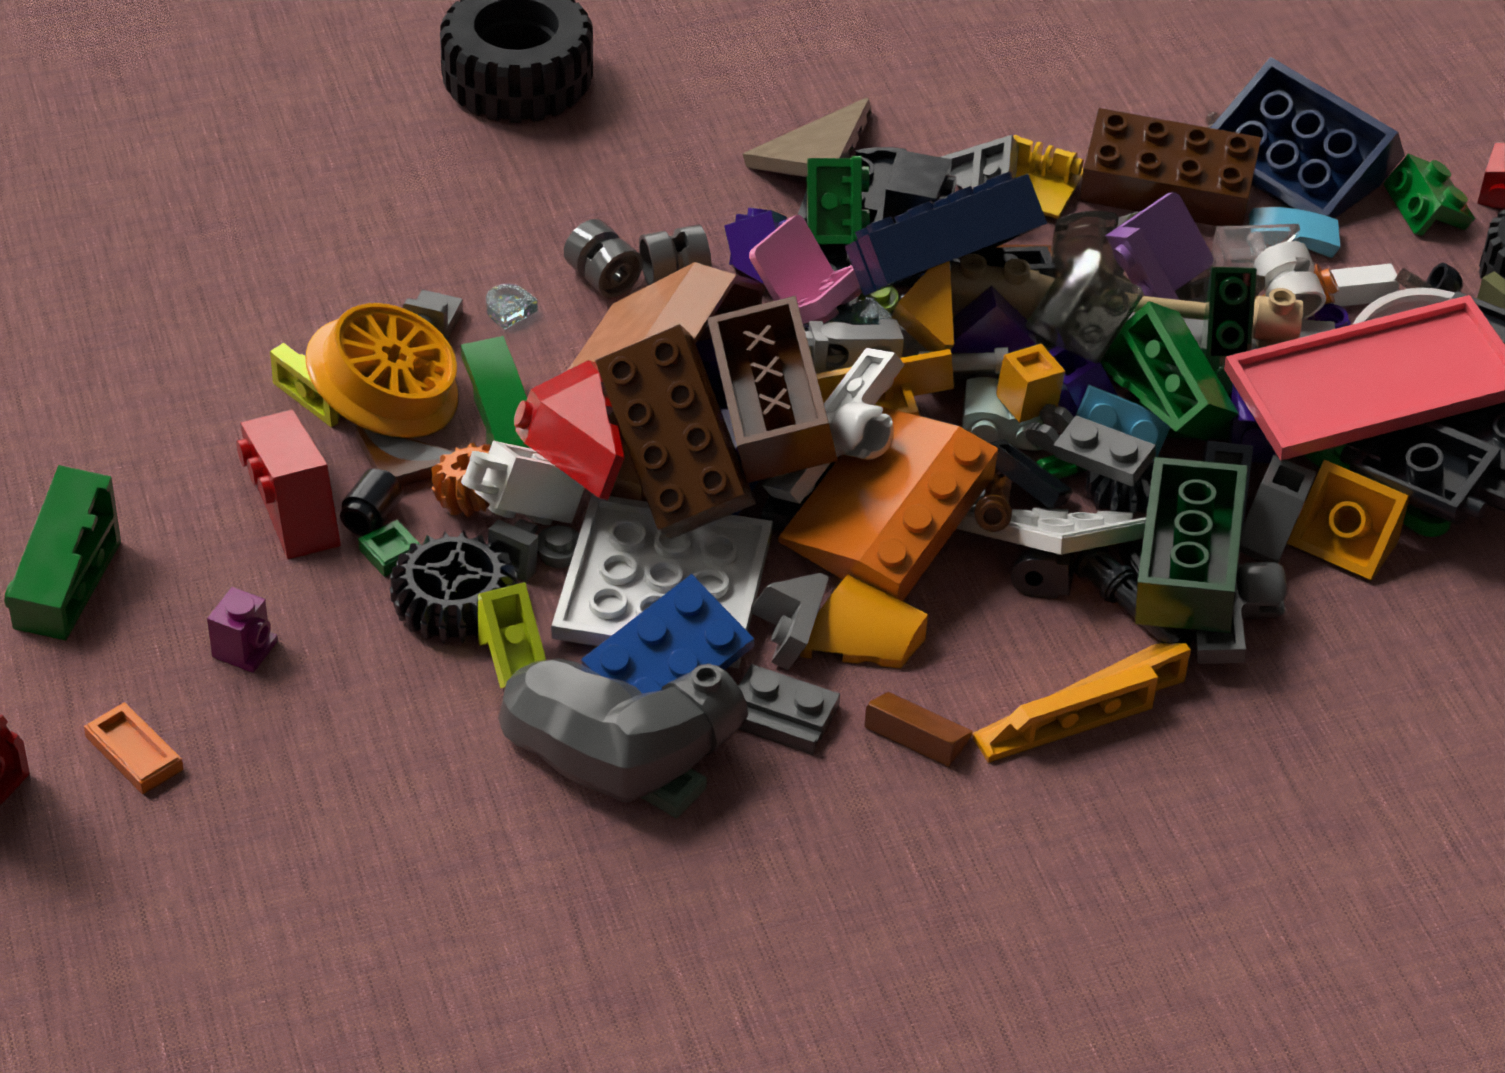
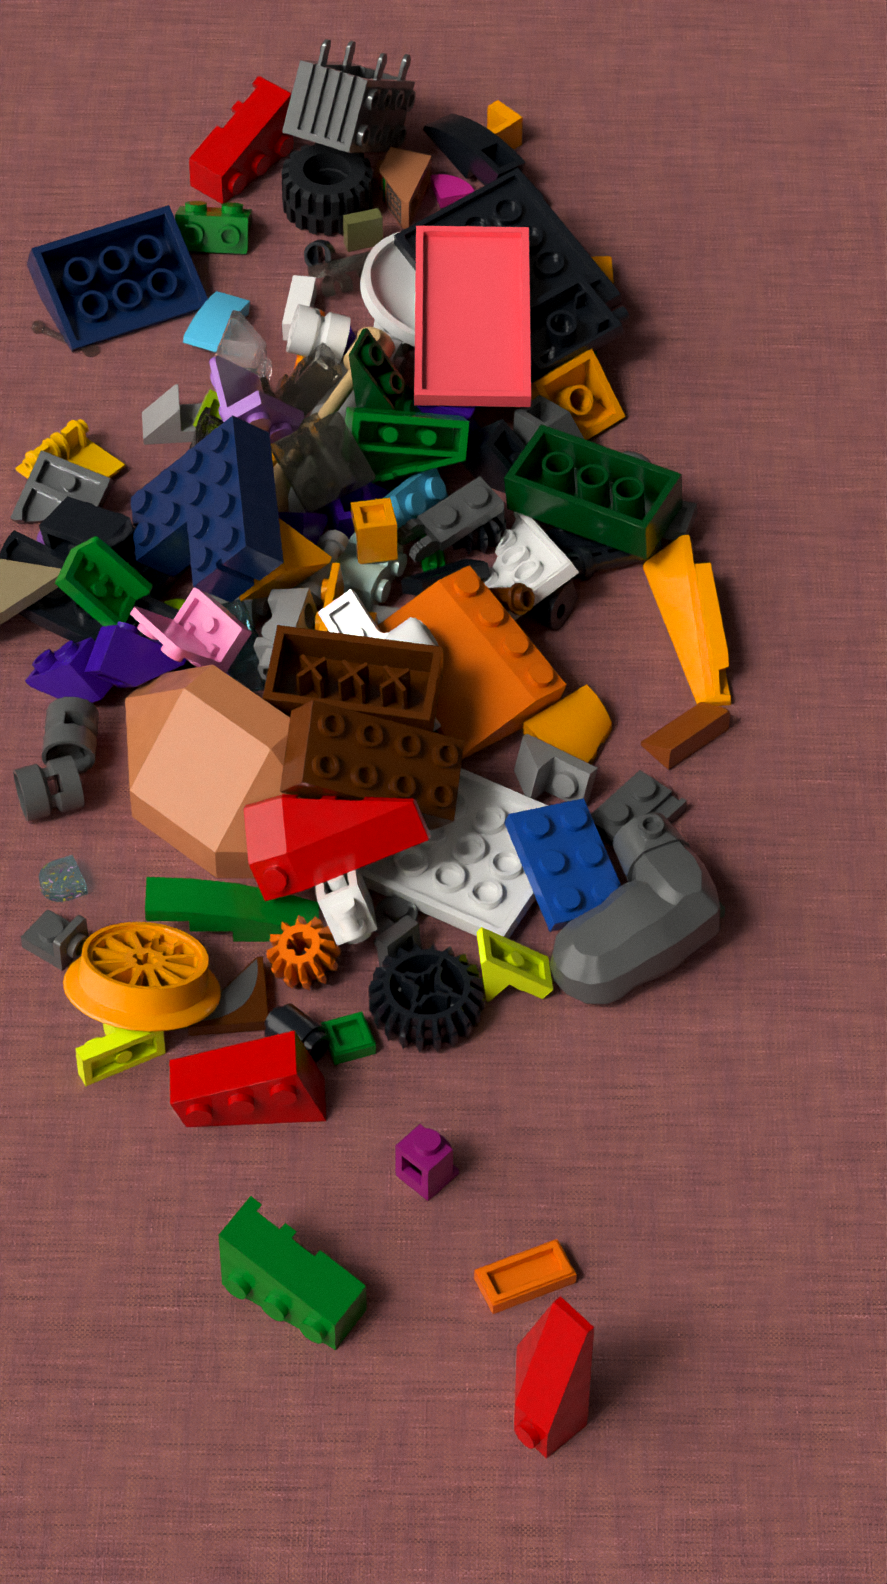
camera: 70 degrees left, 5 degrees up
(1144, 158) = (116, 367): reddish brown brick -> none

